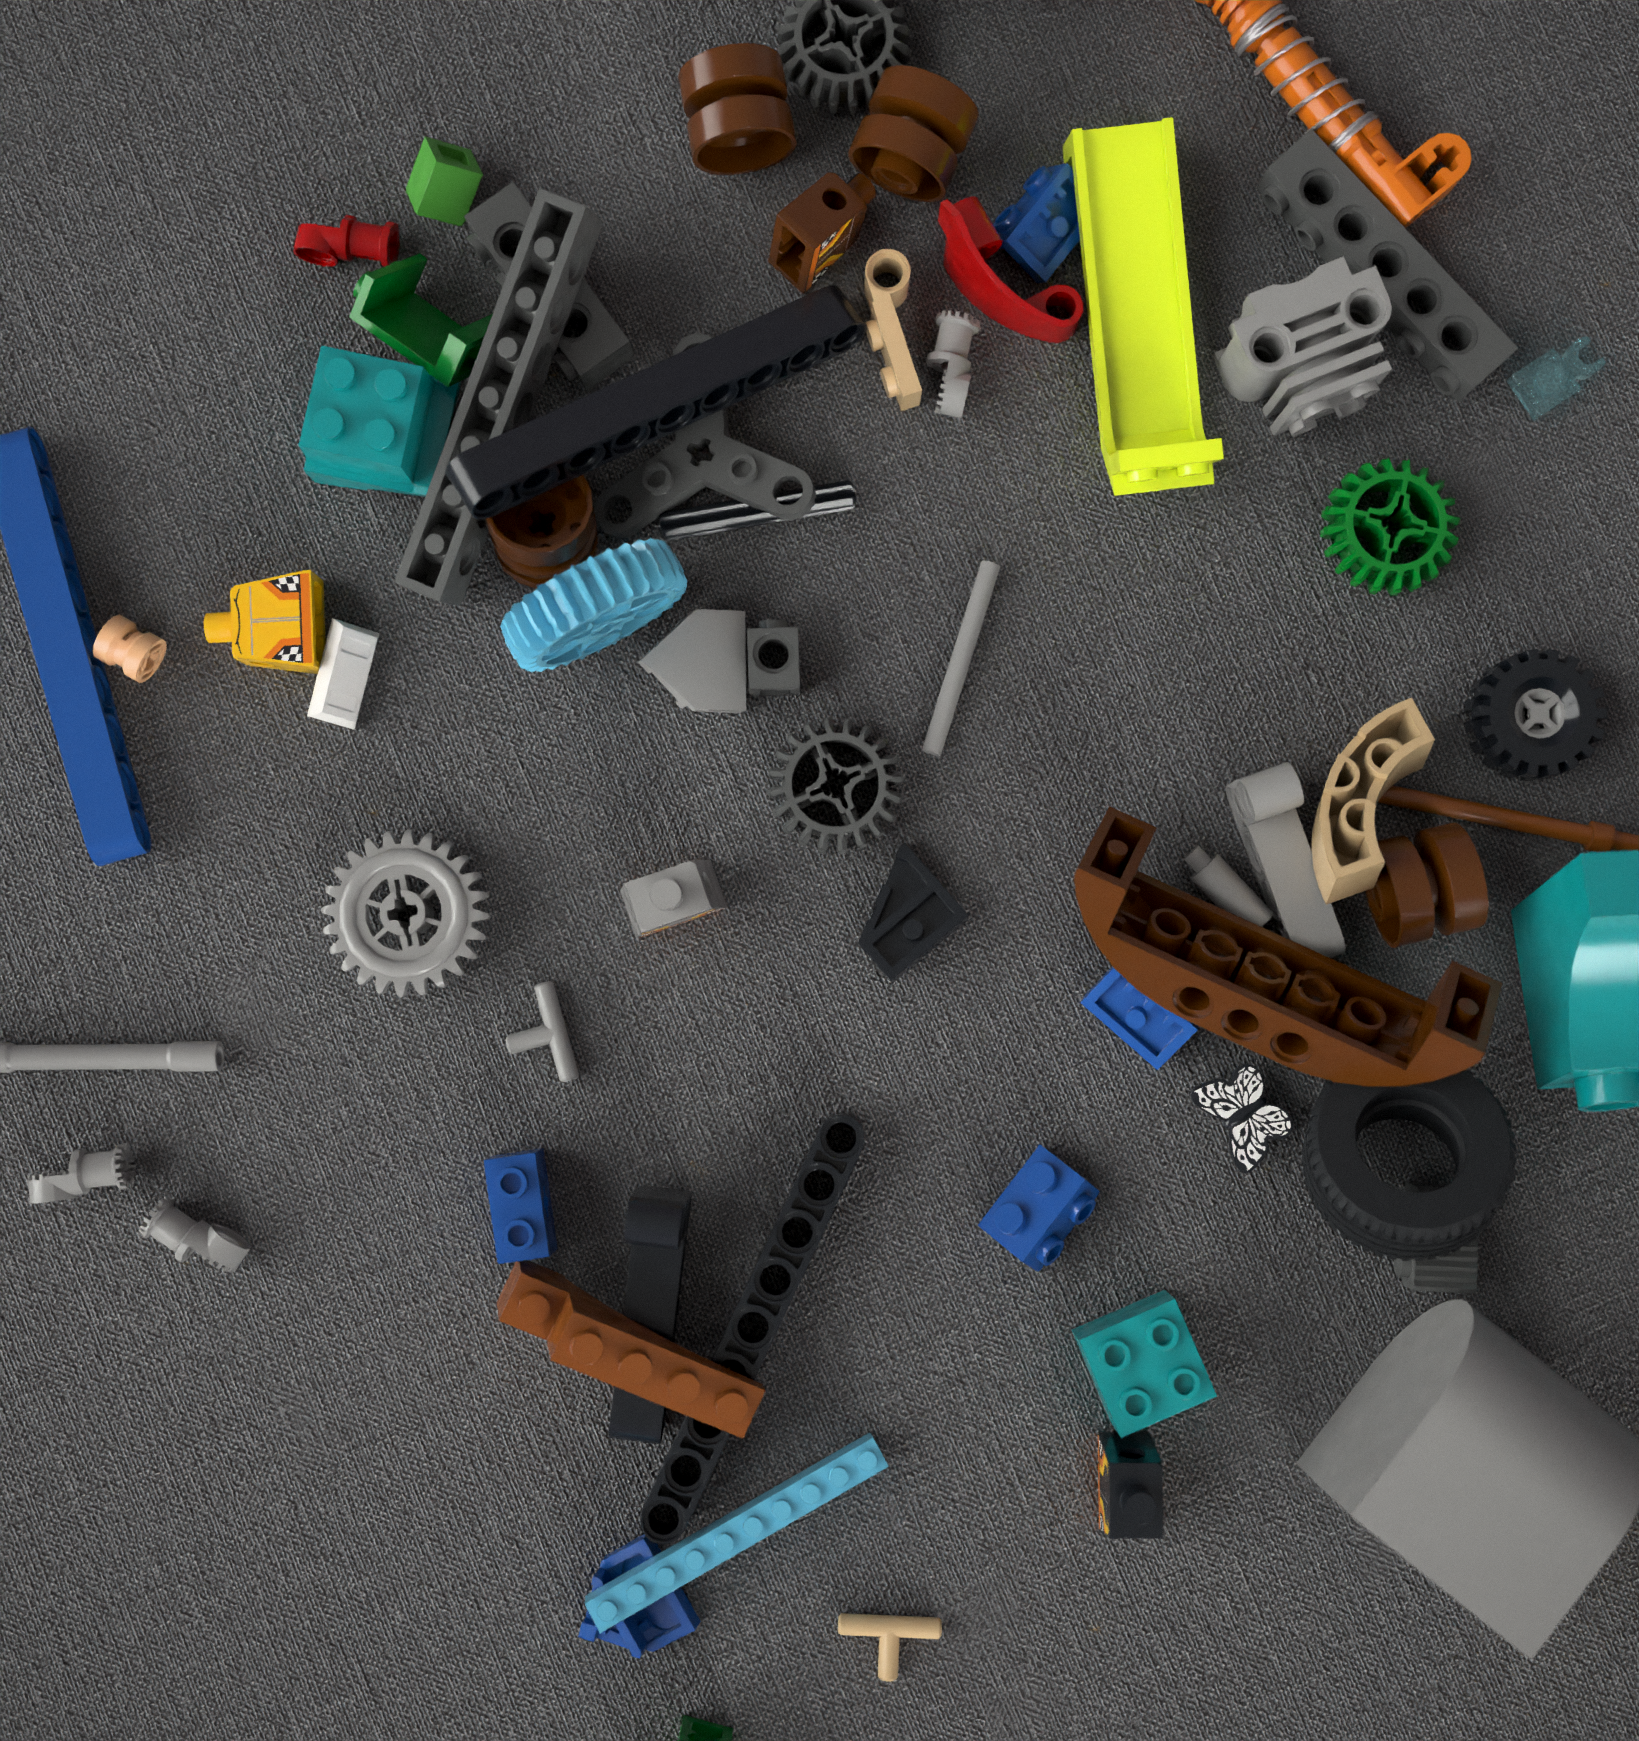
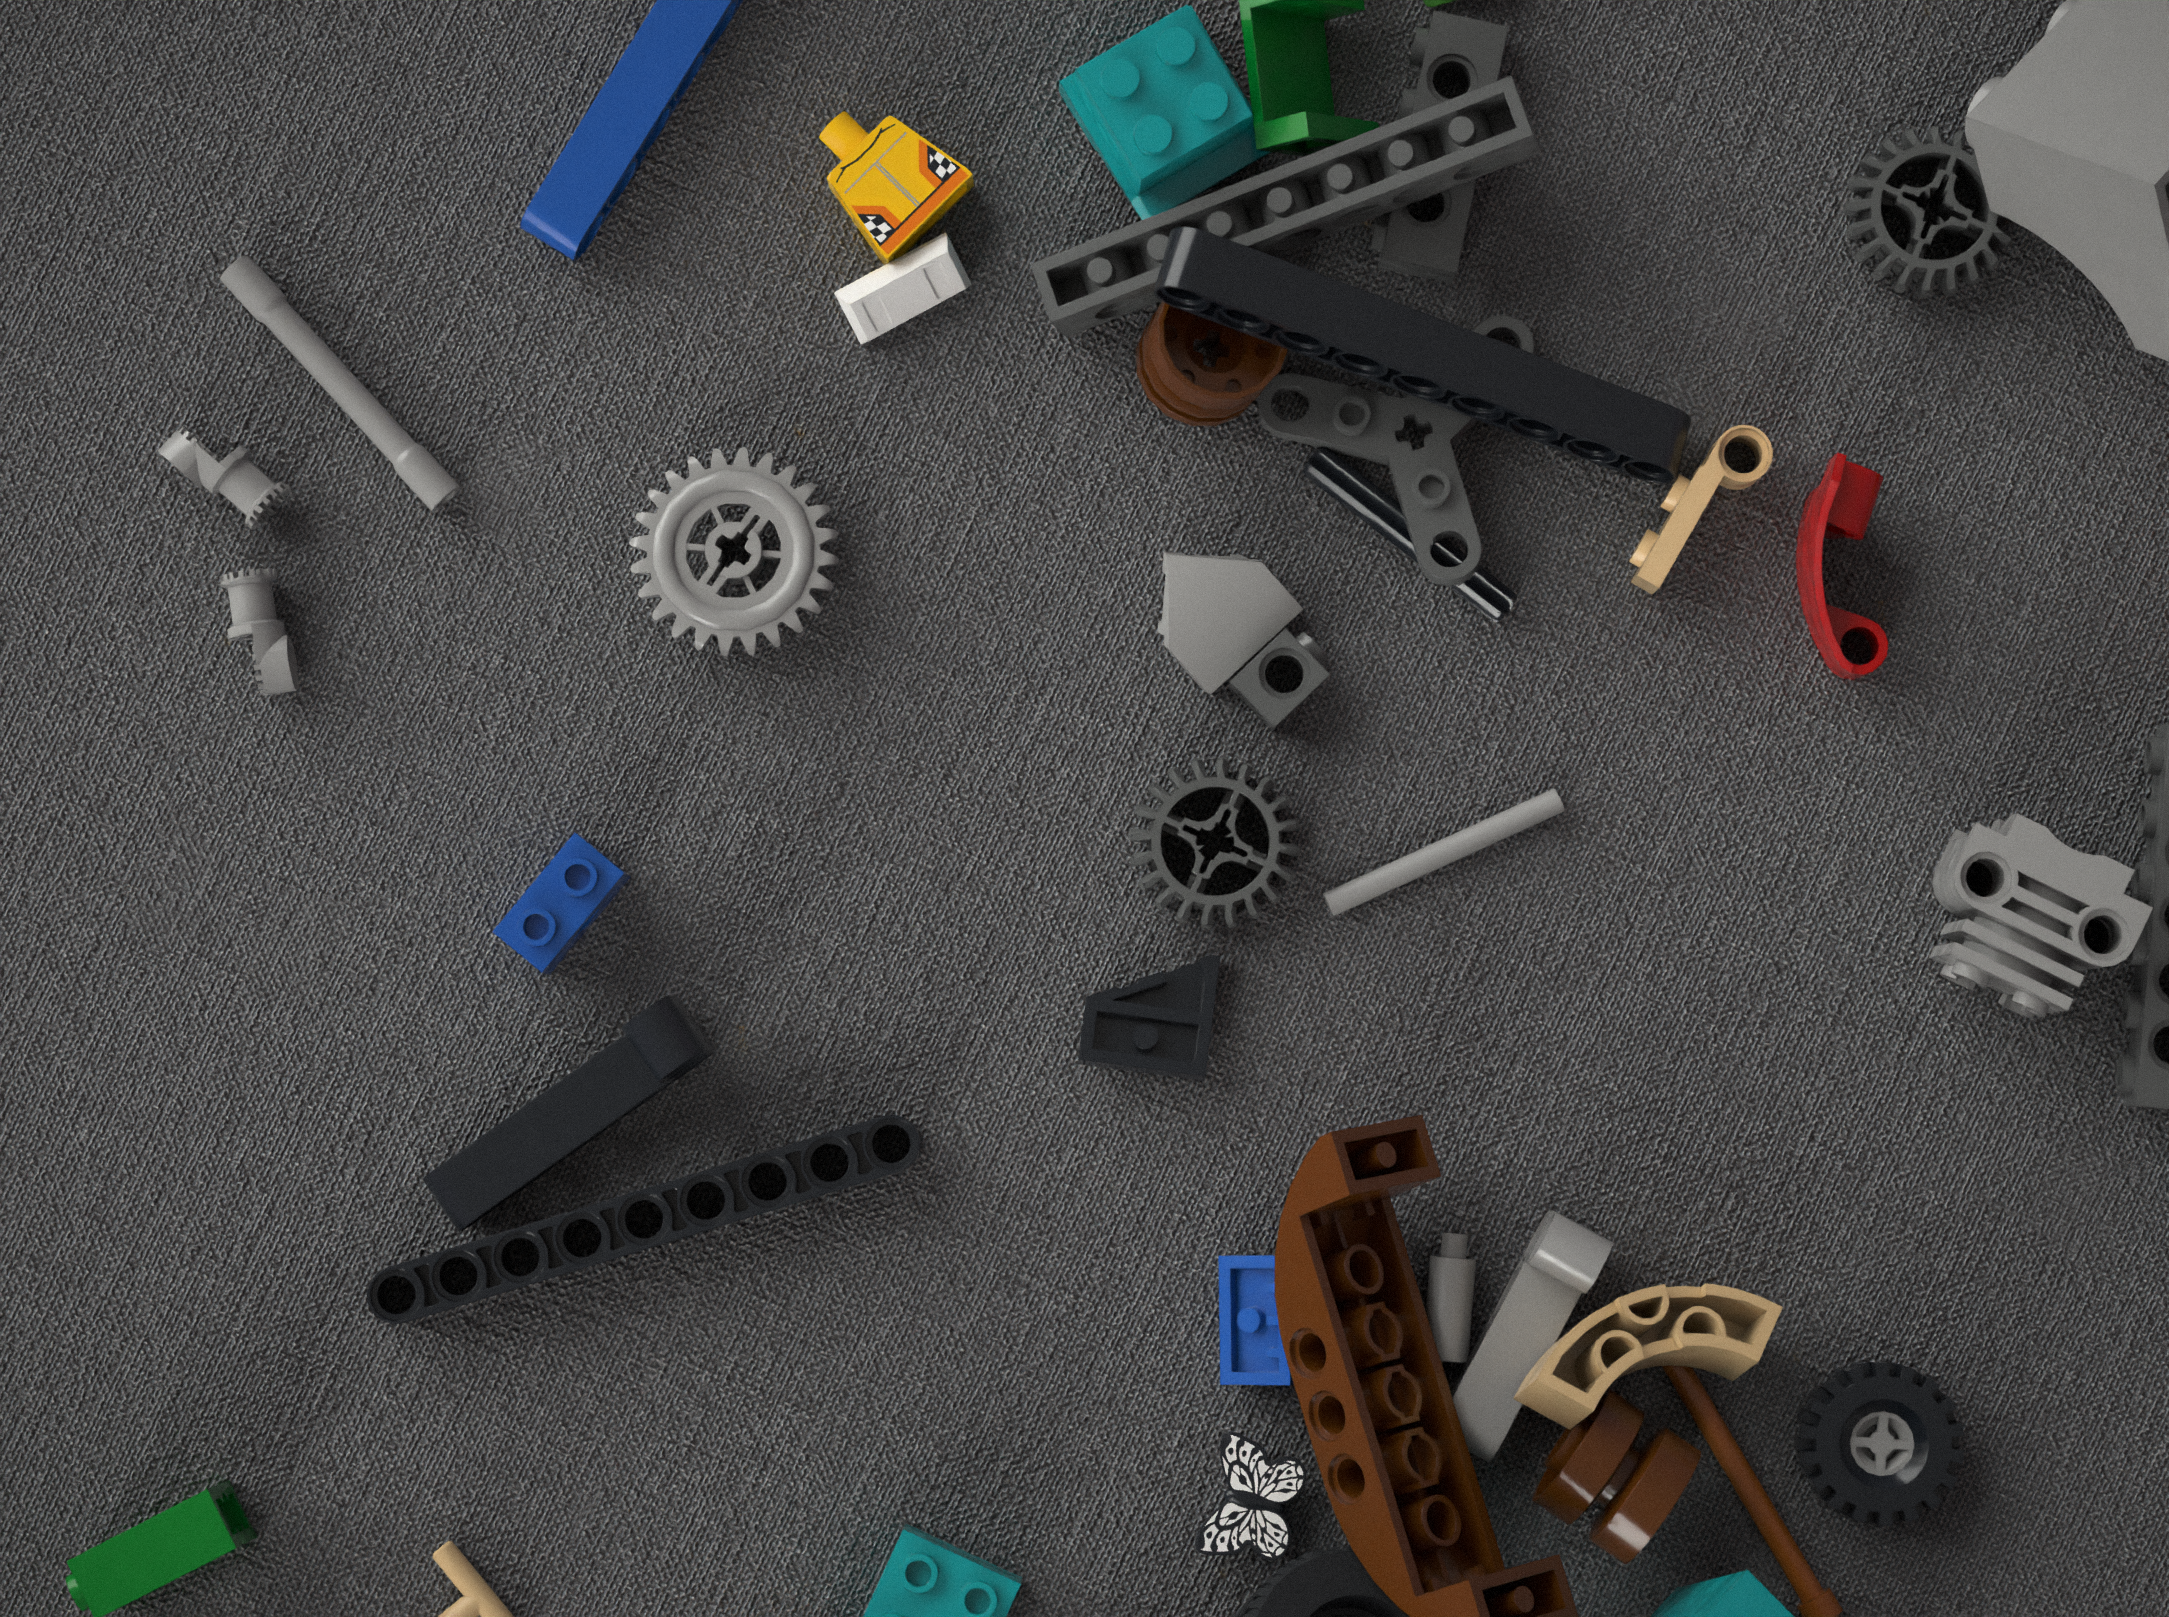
camera: 45 degrees right, 0 degrees up
(126, 646) = (747, 69): light nougat wheel -> none
(552, 1033) = (744, 787): light grey piece -> none
(593, 605) = (1175, 470): medium azure gear -> none
(623, 1353) = (518, 1120): dark orange arch -> none
(653, 1625) = (296, 1341): blue slope -> none
(672, 896) = (972, 785): light grey torso -> none
(734, 1532) = (444, 1373): medium azure piece -> none
(737, 109) = (1774, 166): reddish brown wheel -> none
(819, 228) = (1730, 351): reddish brown torso -> none
(913, 133) = (1914, 354): reddish brown wheel -> none
(952, 360) = (1722, 584): light grey connector -> none
(1040, 1209) = (991, 1391): blue bracket -> none
(1042, 223) = (1935, 556): blue bracket -> none
(1139, 307) = (1926, 723): neon yellow panel -> none
(1402, 488) = (1951, 1170): green gear -> none

